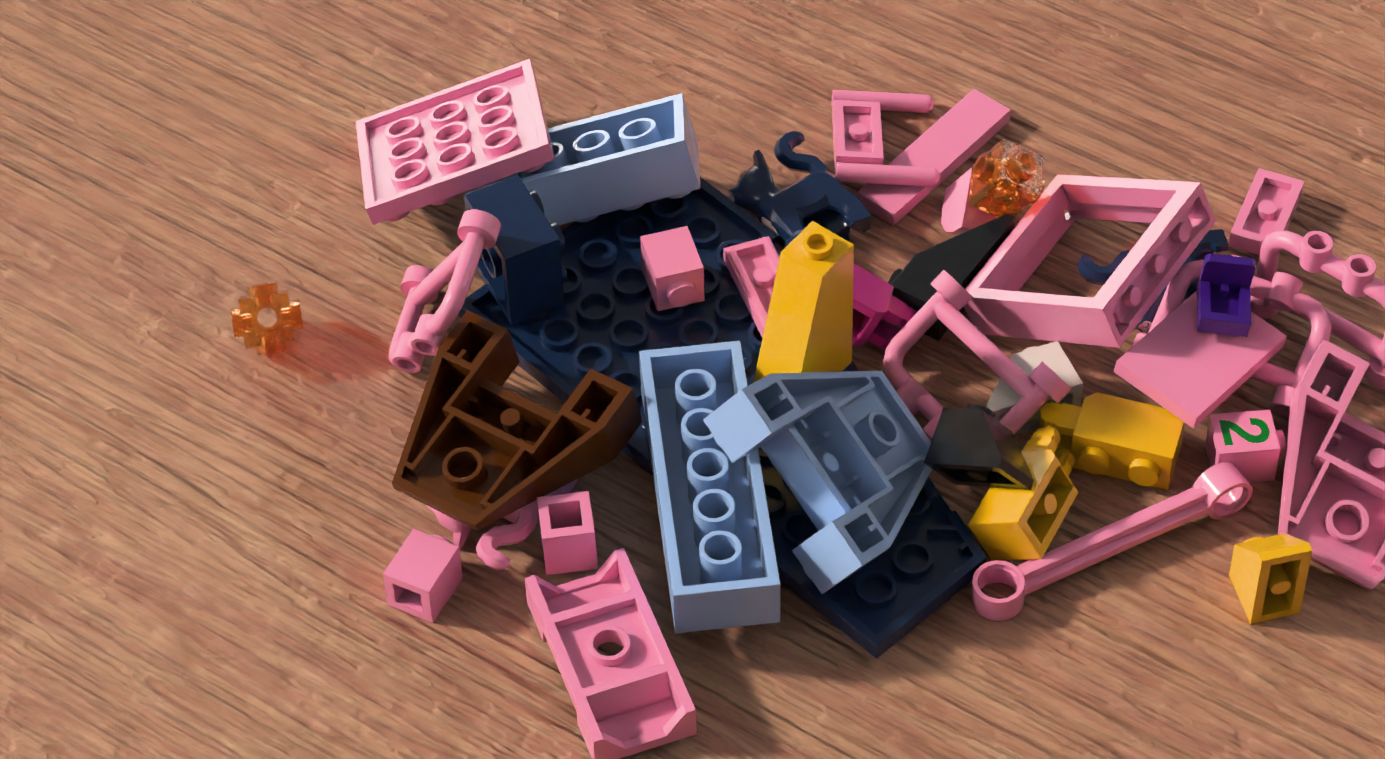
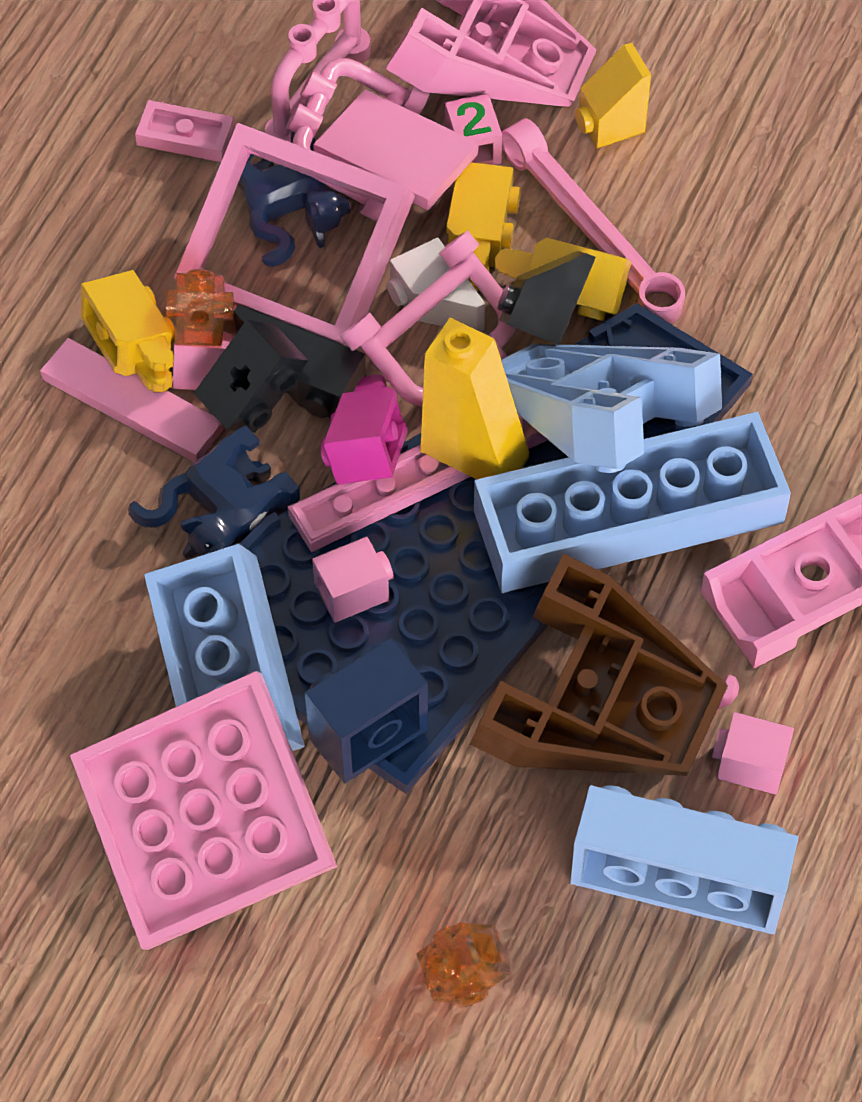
camera: 100 degrees left, 10 degrees up
(313, 483) = (683, 858): none -> light blue brick
(423, 334) = (492, 803): bright pink bar -> none
(567, 533) = (694, 622): bright pink brick -> none
(859, 137) = (122, 457): bright pink plate -> none
(923, 219) = (251, 376): none -> black brick
(1029, 124) = (129, 328): none -> yellow hinge
(1225, 295) = (351, 119): dark purple bracket -> none

